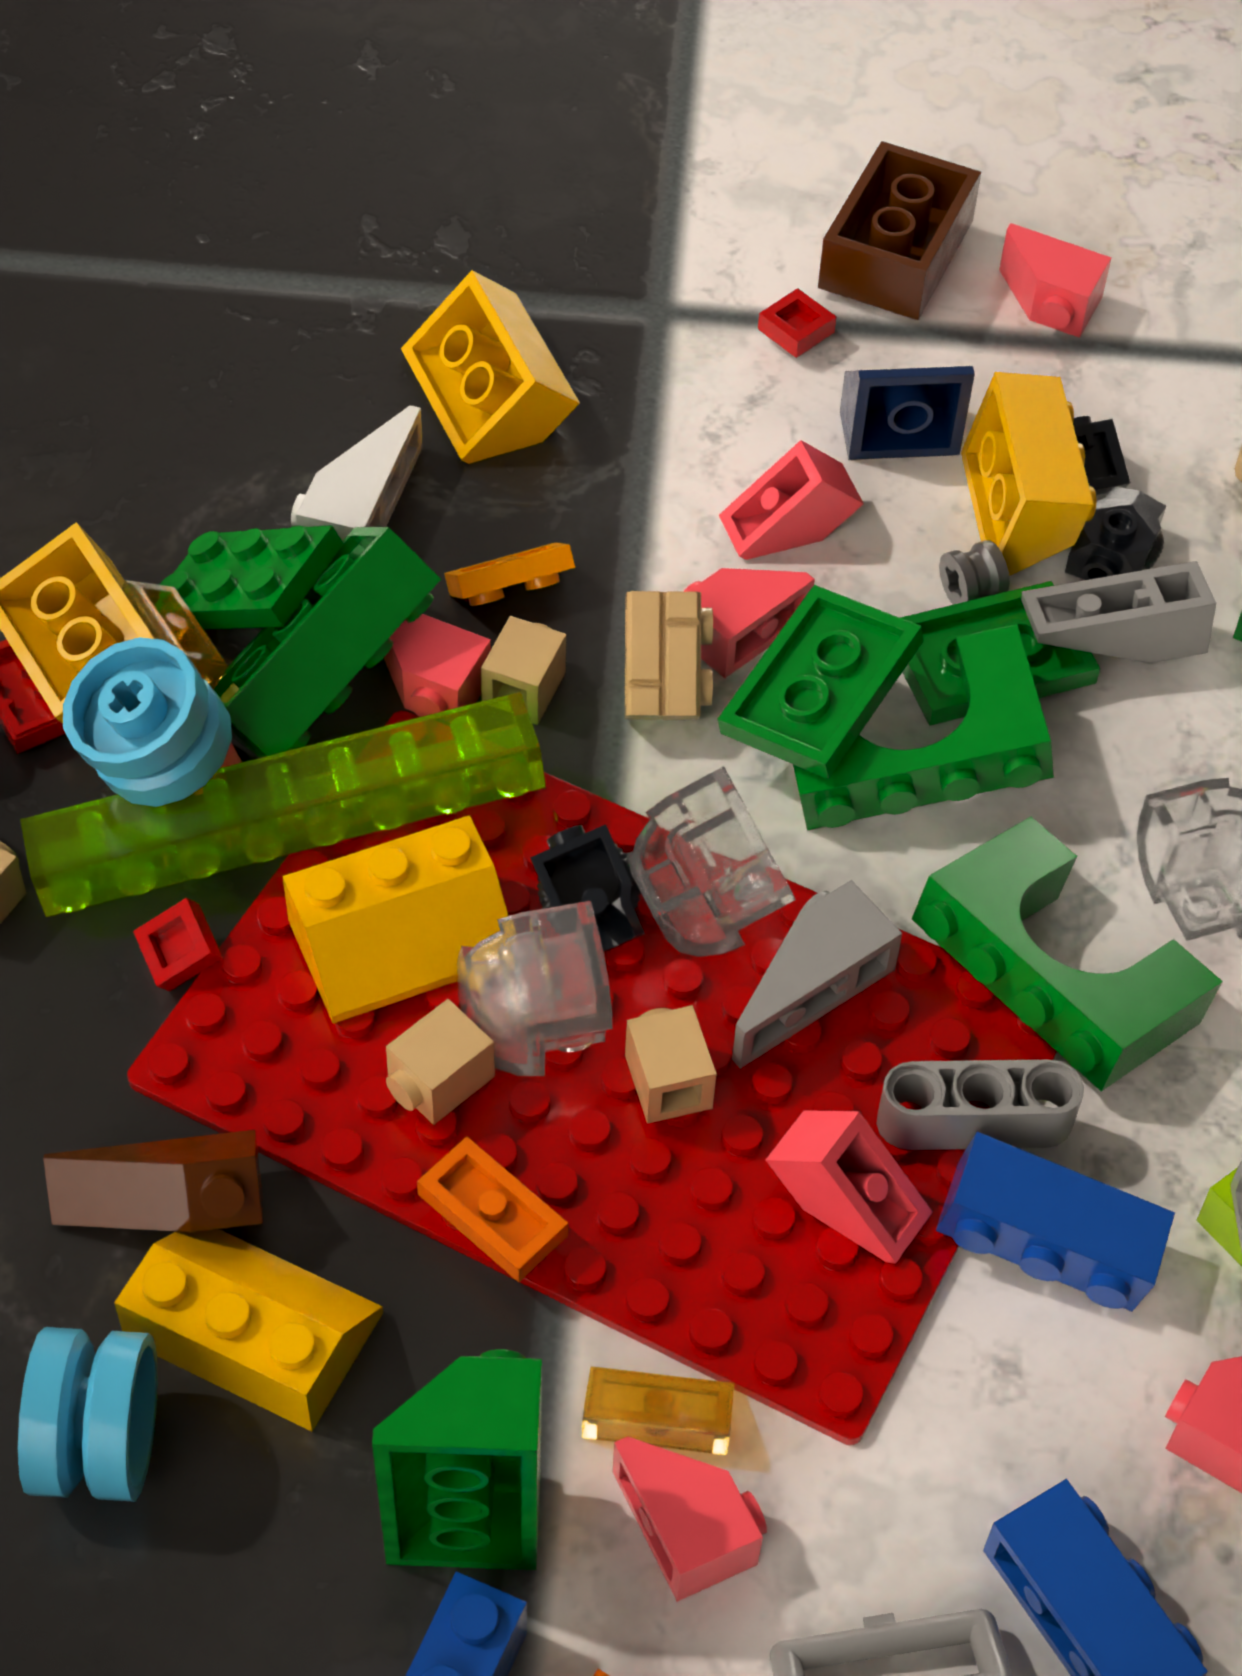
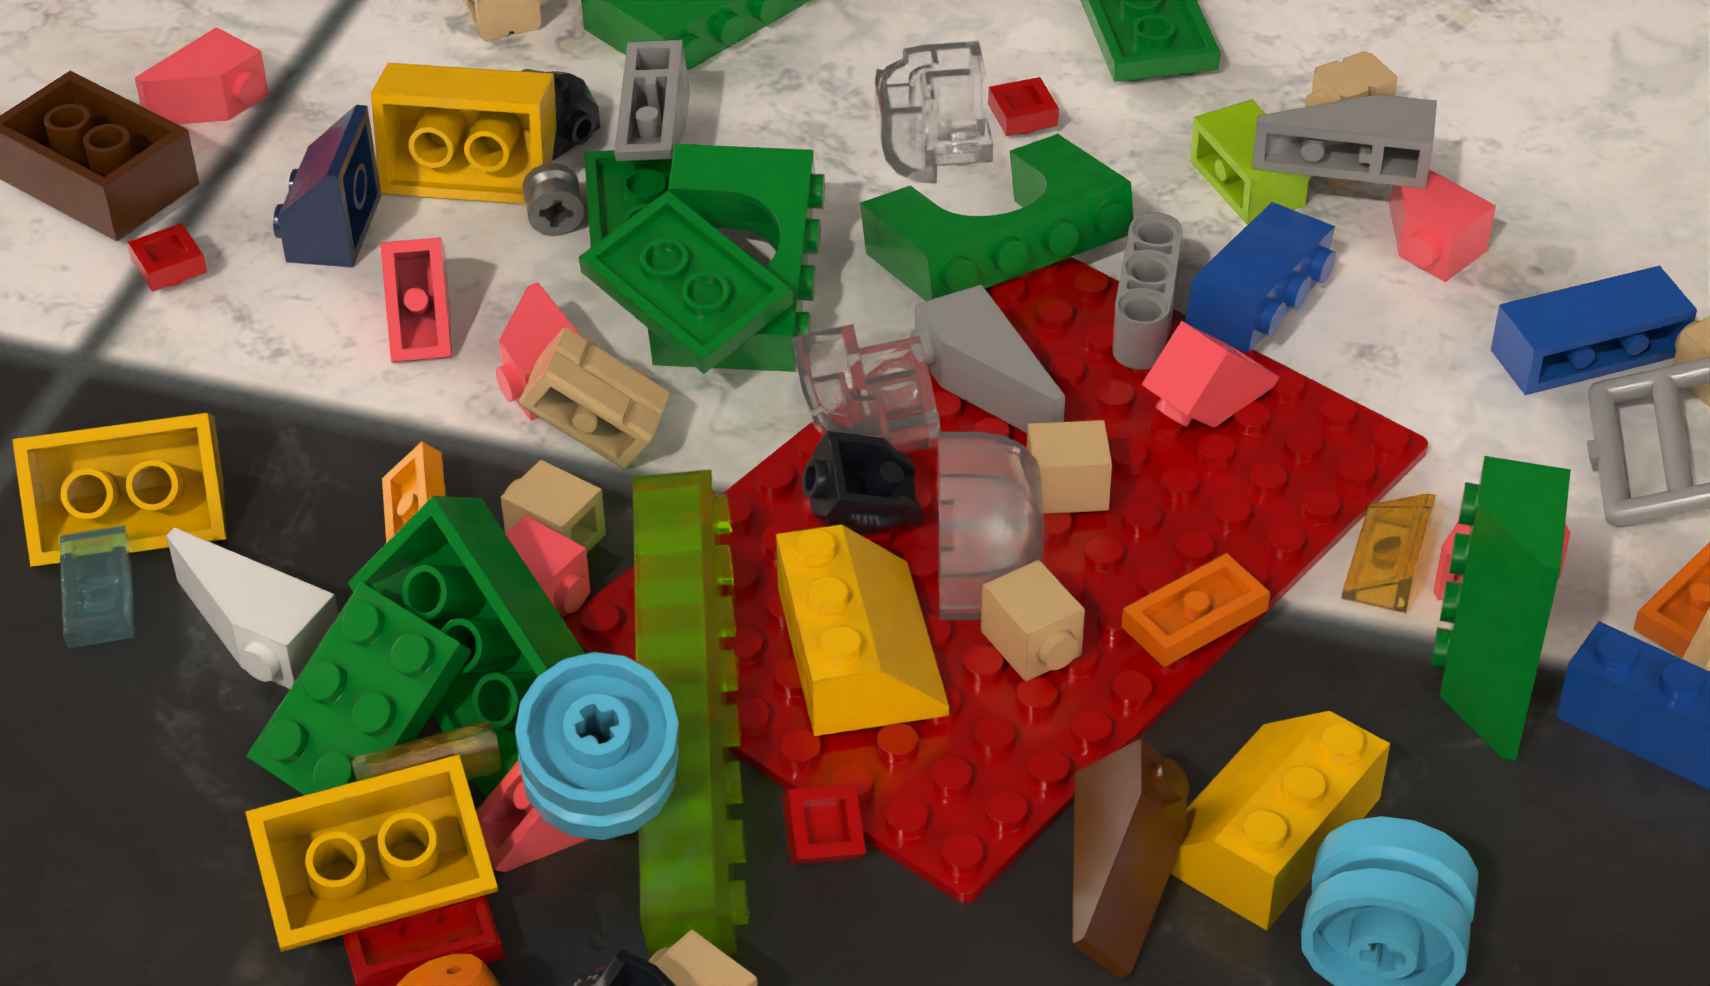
camera: 75 degrees left, 10 degrees down
(374, 390) = (96, 586): none -> clear light blue plate

